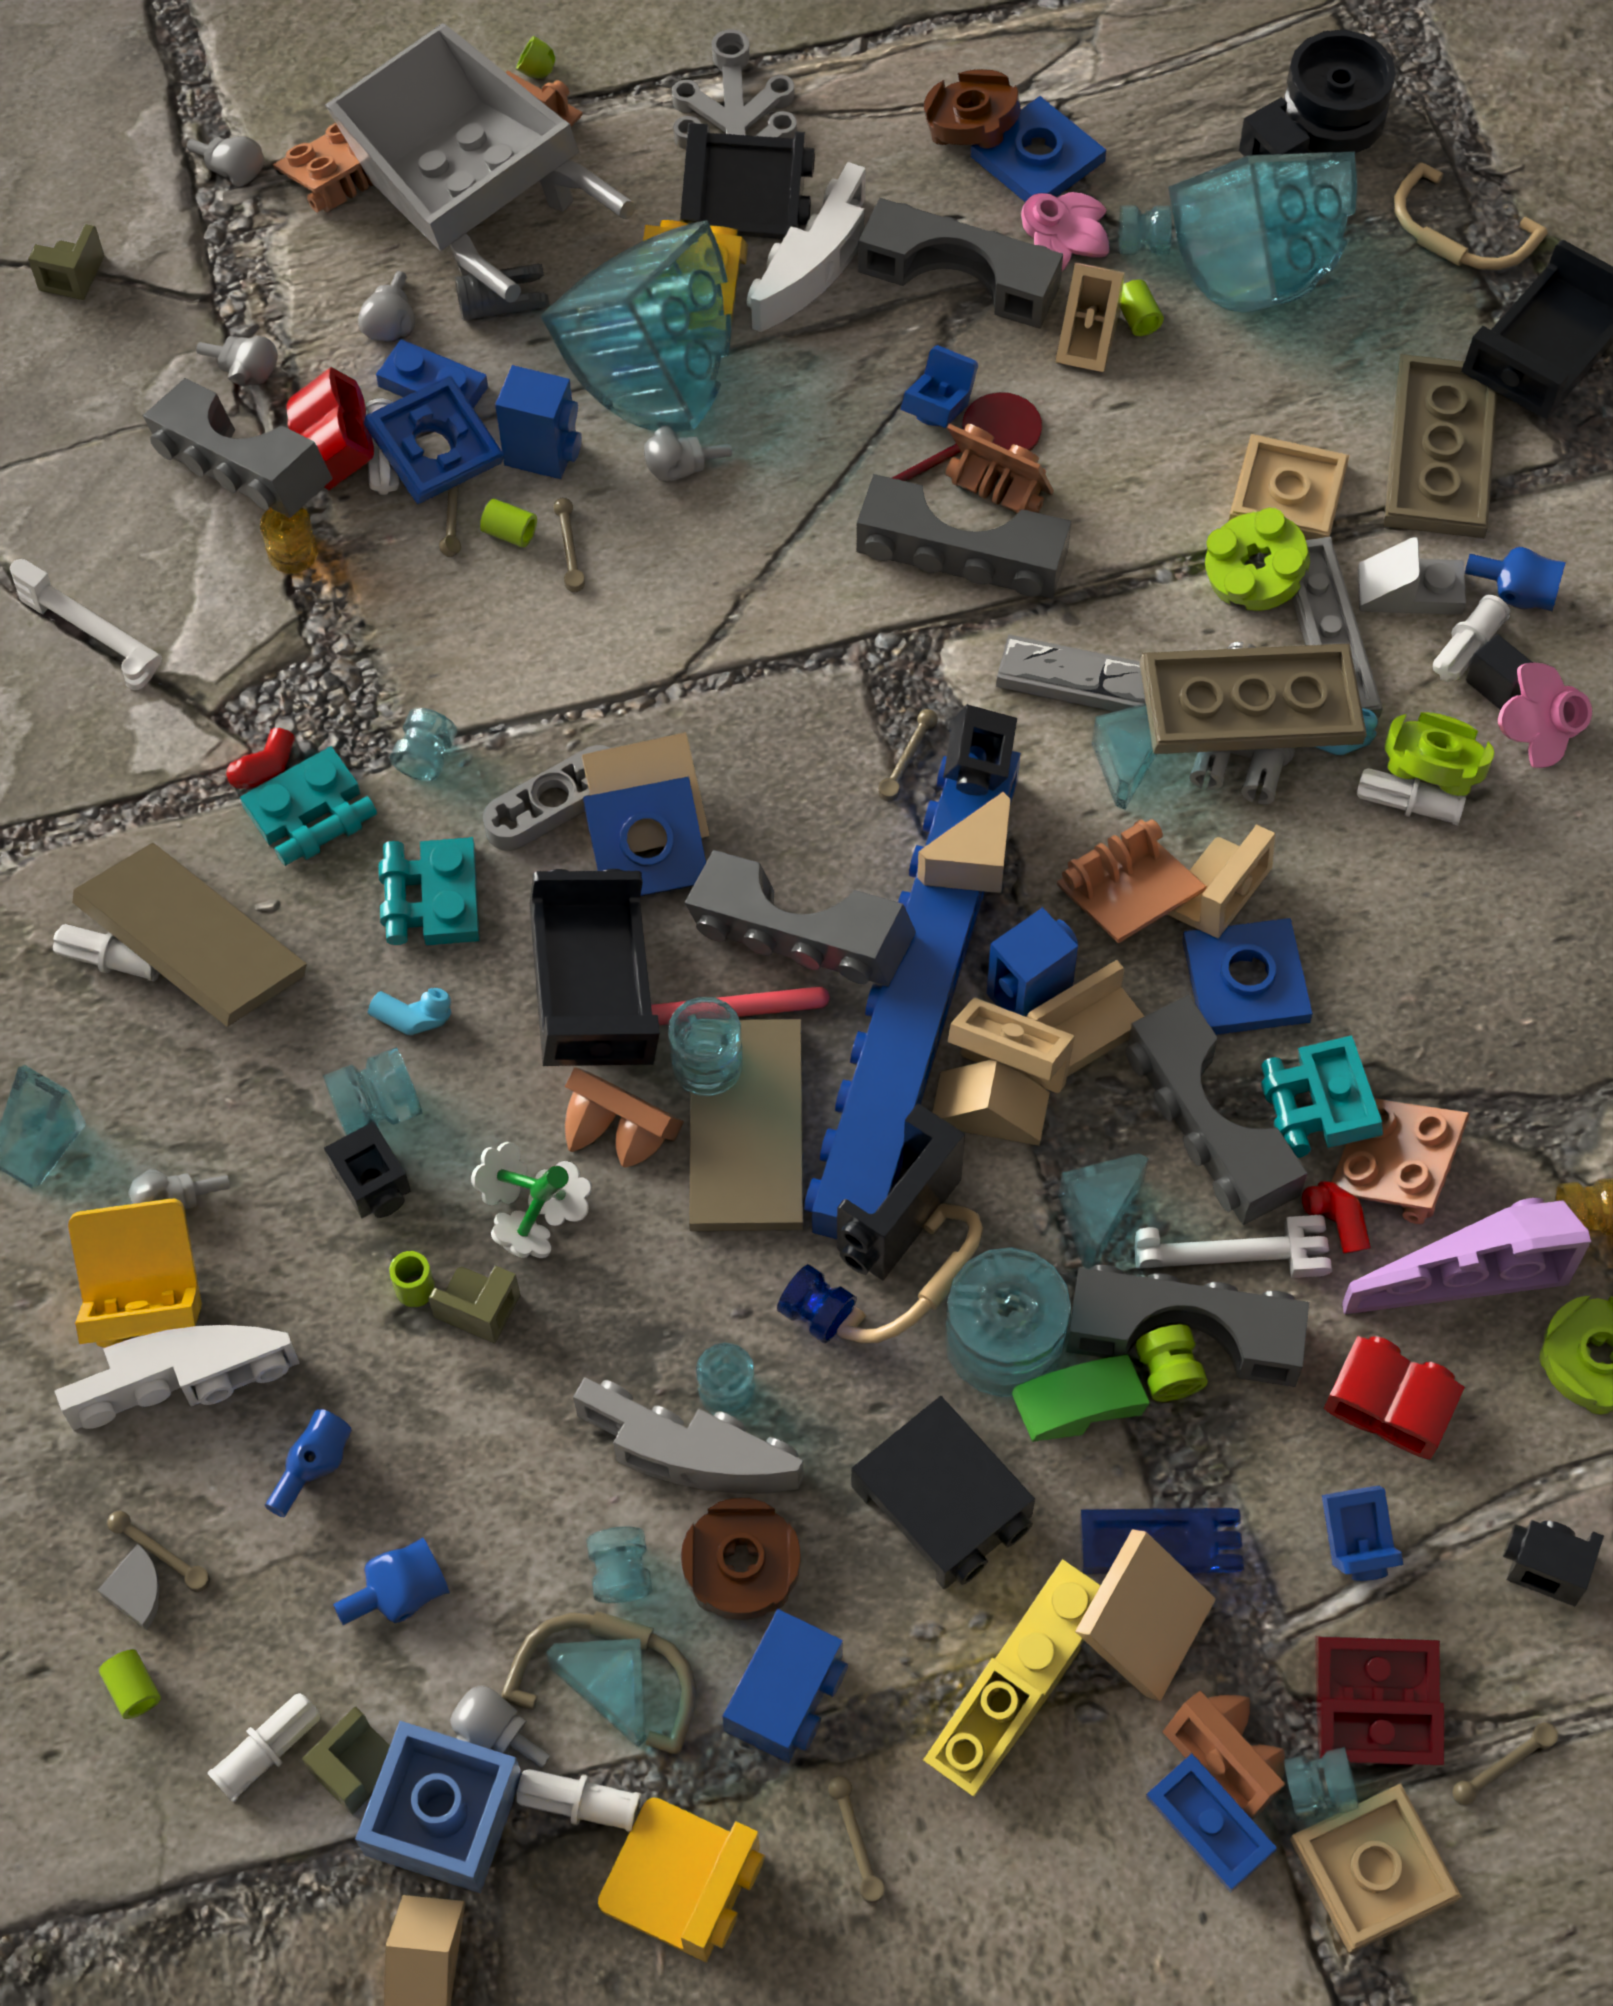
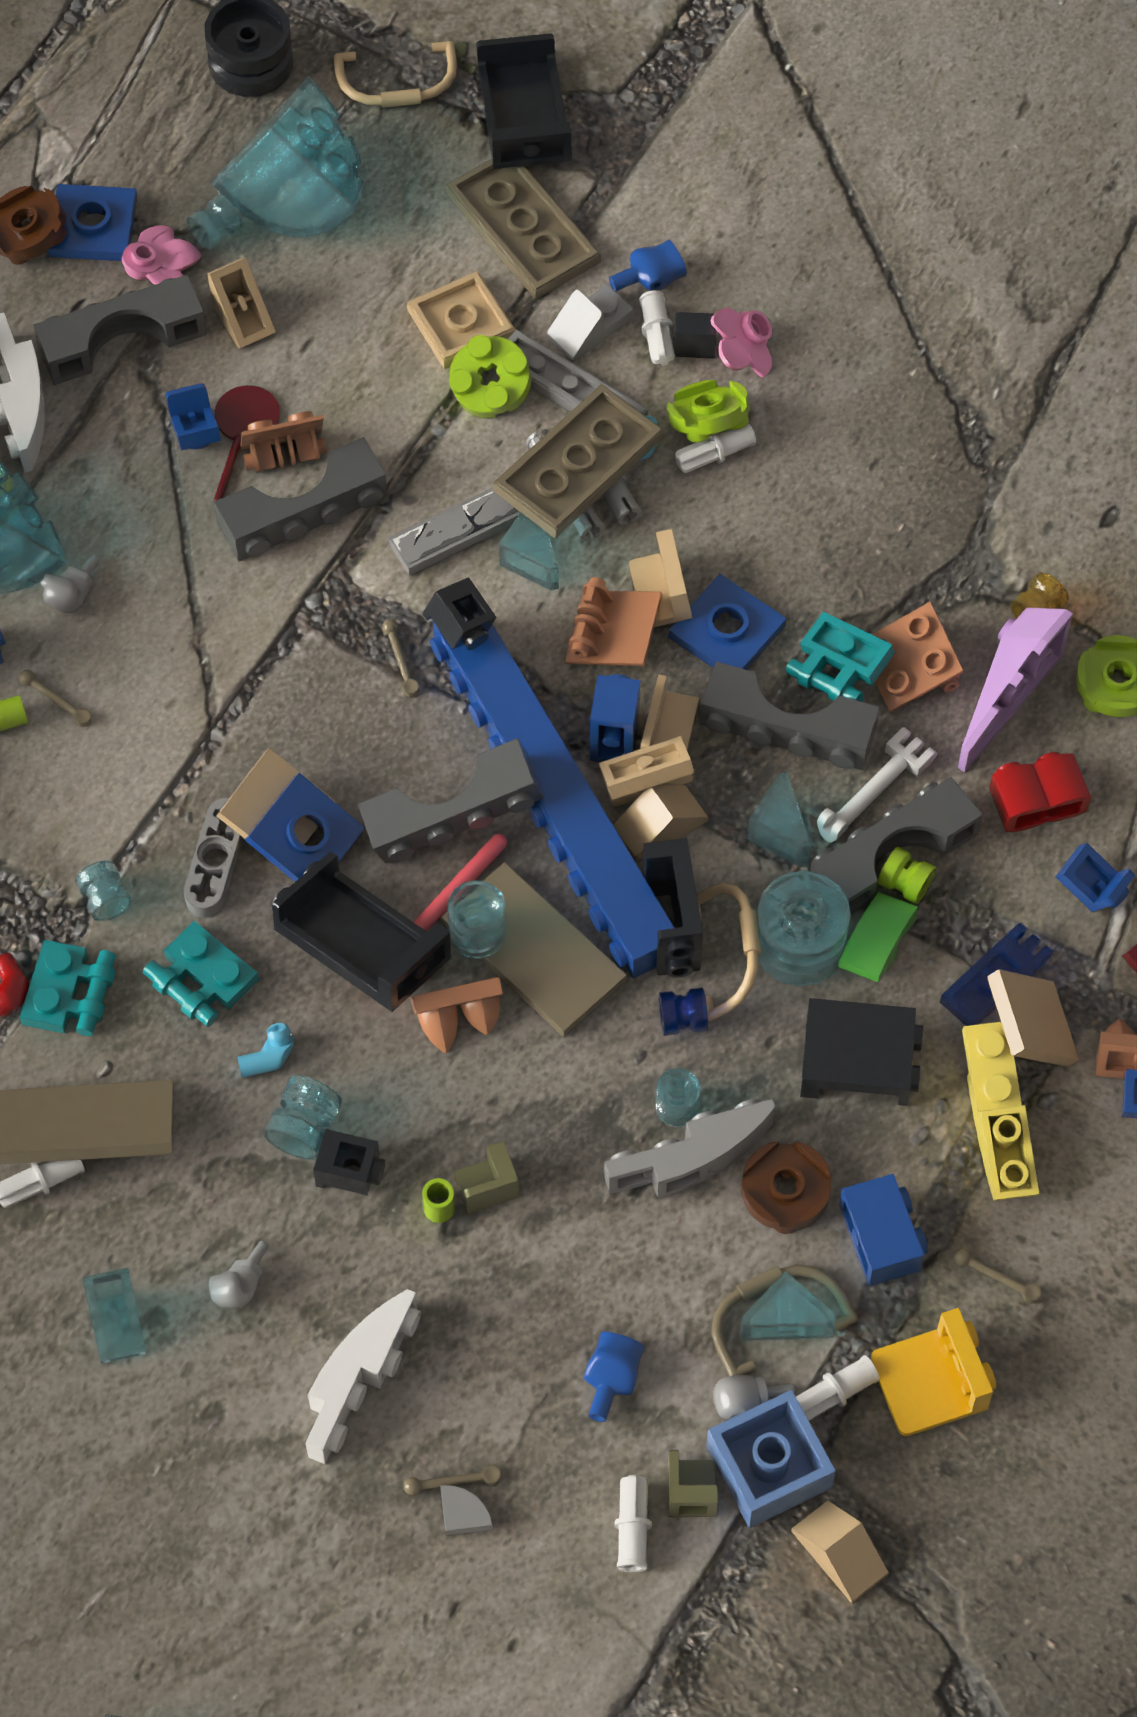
camera: 45 degrees left, 0 degrees up
(129, 1684) = (519, 1562): lime hinge -> none
(134, 1271) = (275, 1339): yellow bracket -> none
(311, 1457) = (488, 1346): blue piece -> none
(553, 1192) = (468, 1085): white plant -> none
(619, 1565) = (727, 1249): clear light blue wheel -> none
(970, 852) = (521, 677): tan slope -> none
(1140, 308) = (265, 274): lime hinge -> none
(1272, 132) = (239, 106): black brick -> none
(1341, 1208) = (908, 714): red arm -> none

